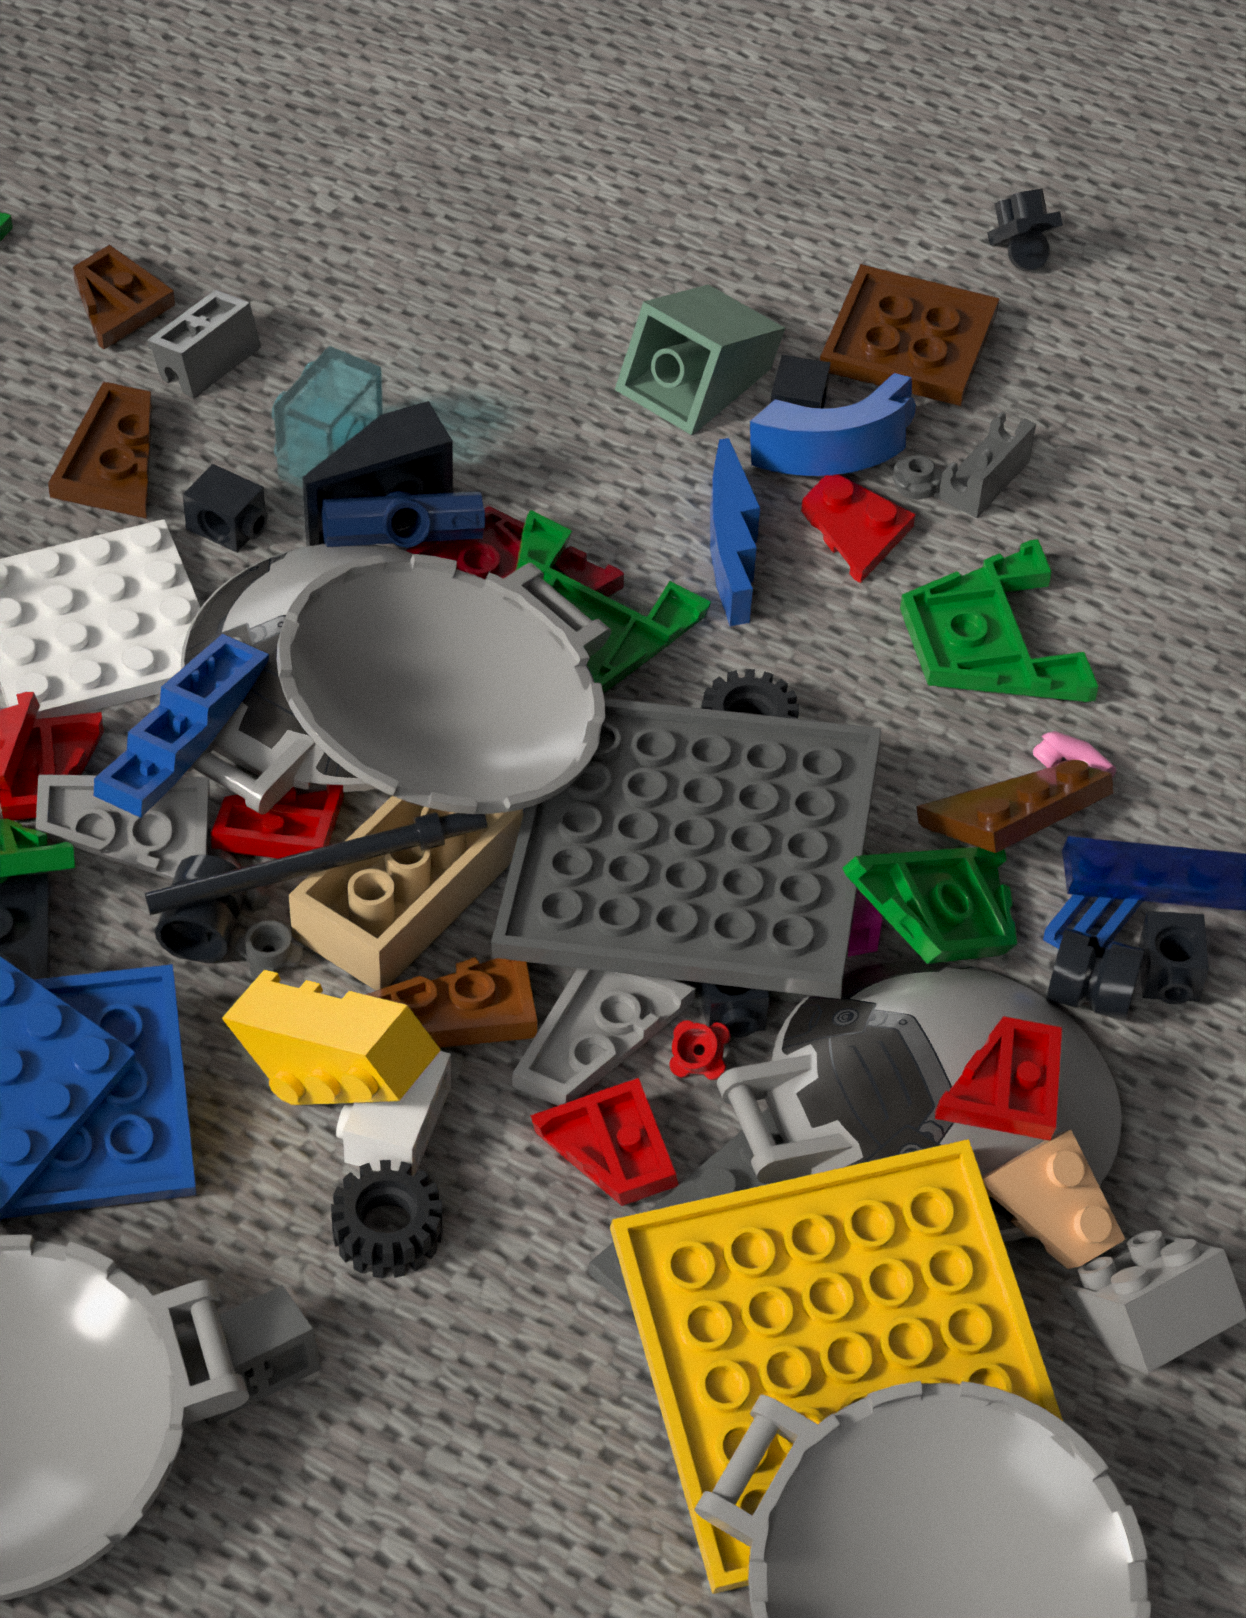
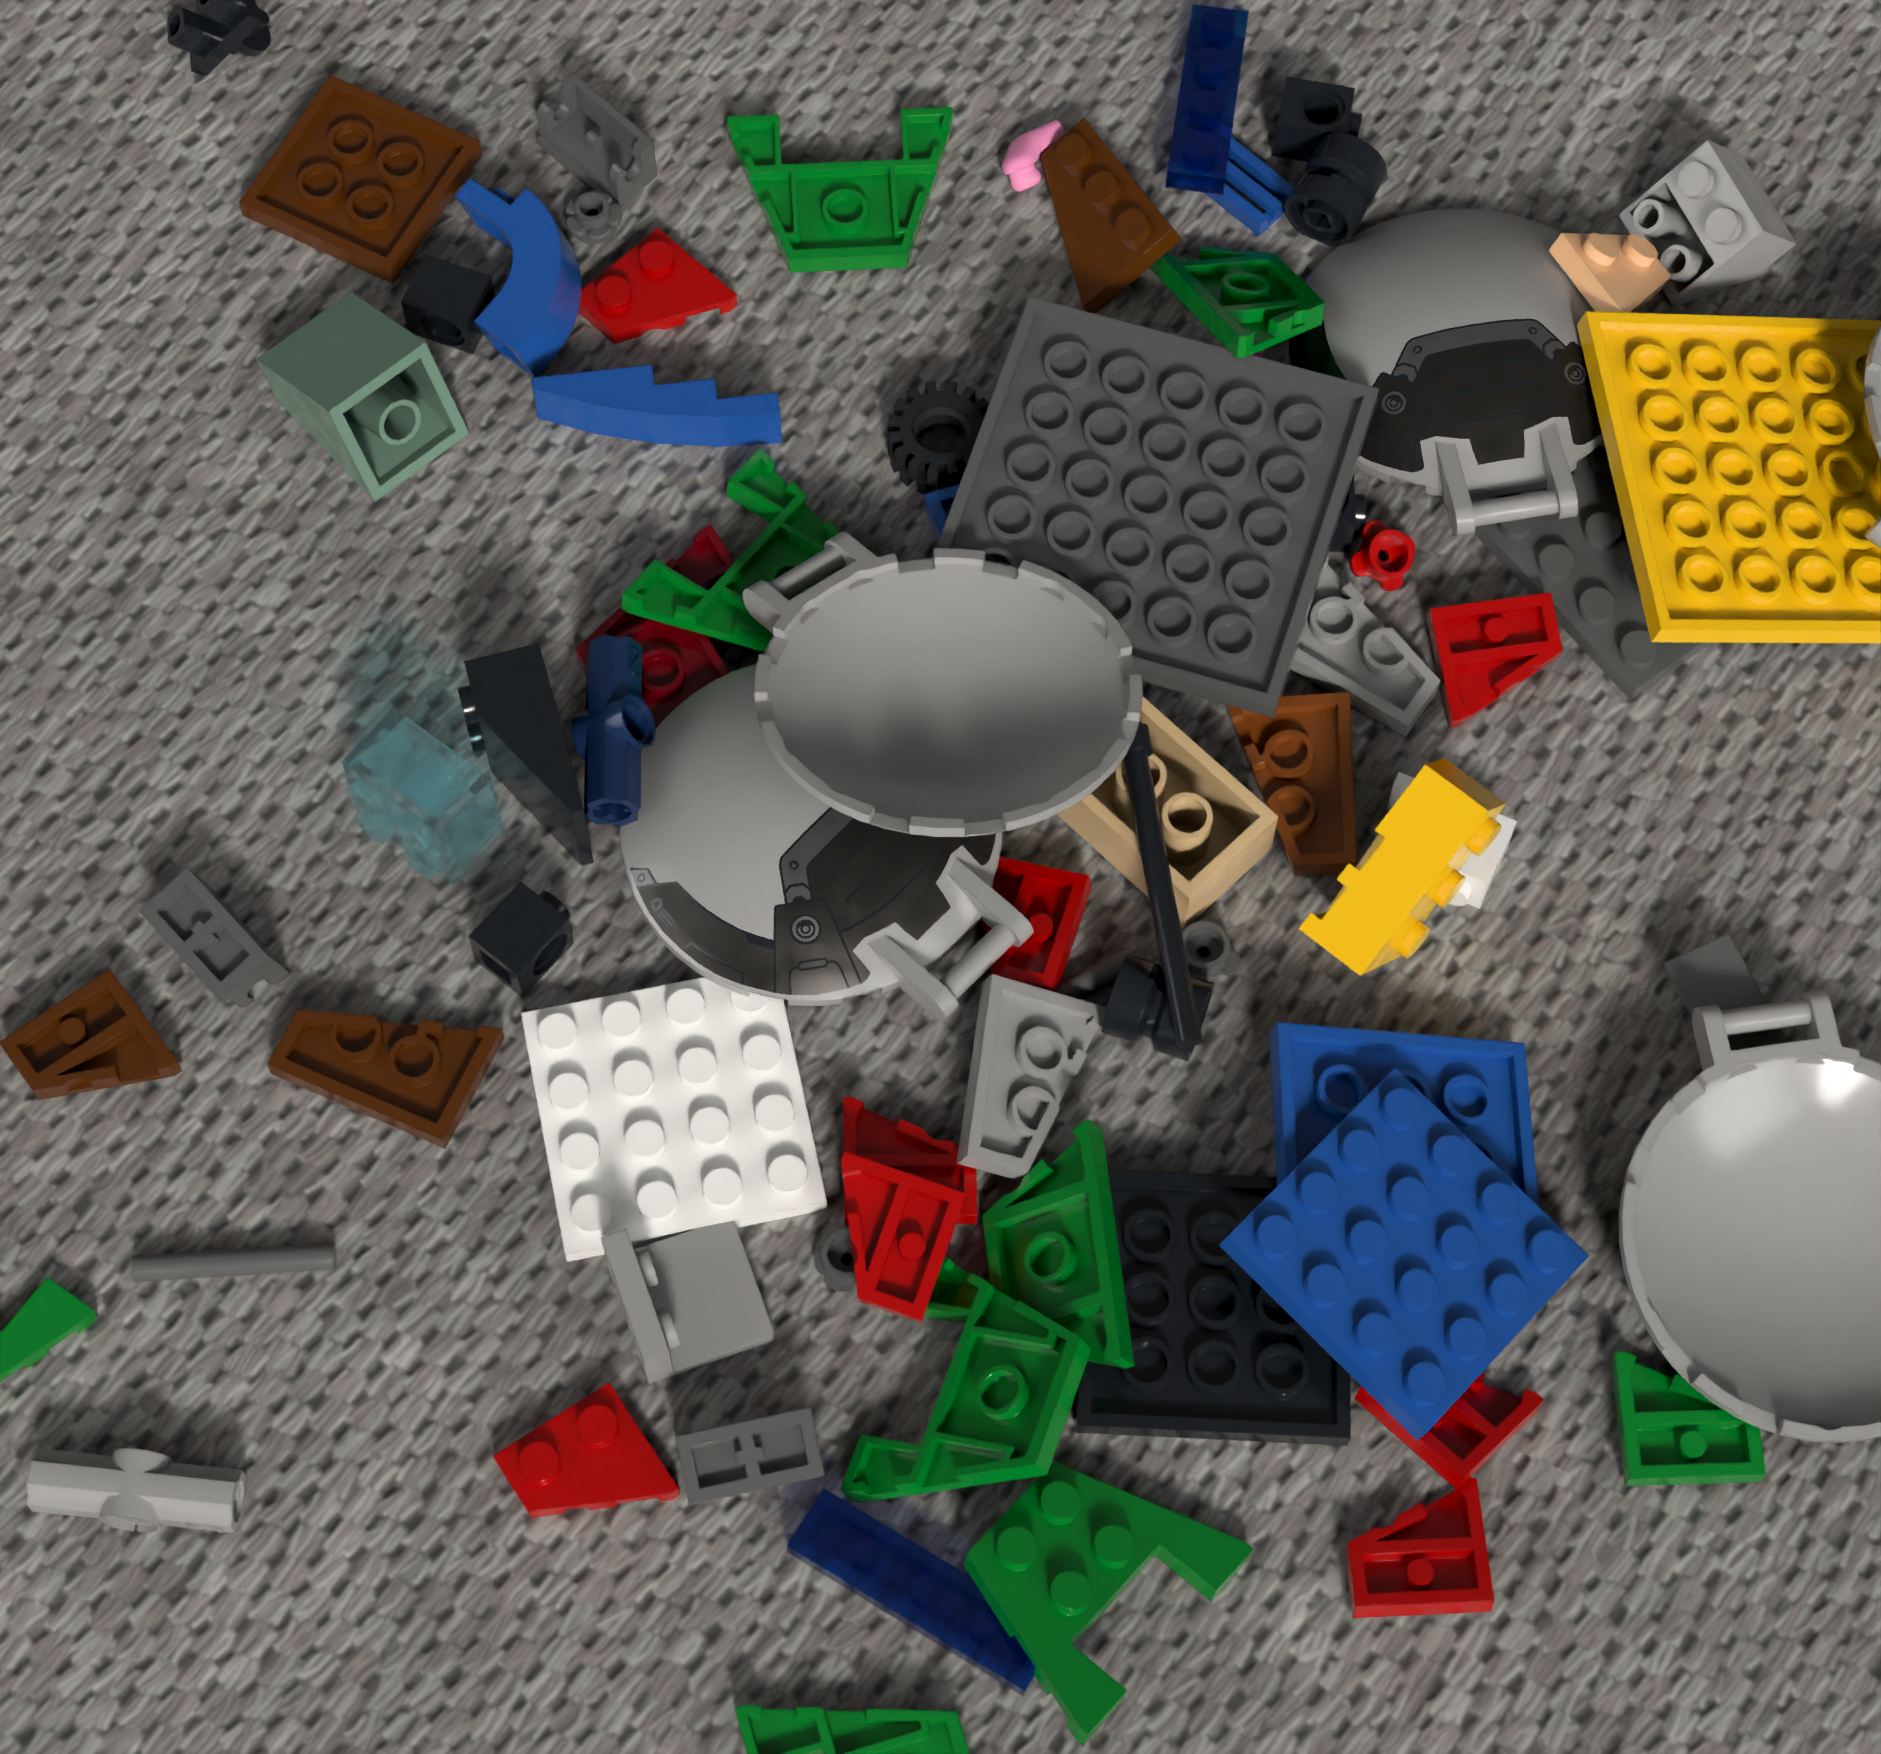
camera: 80 degrees left, 15 degrees up
(181, 728) = (930, 986): blue slope -> none
(390, 1248) = (1580, 834): black tyre -> none
(1009, 1081) = (1514, 265): red wing -> none

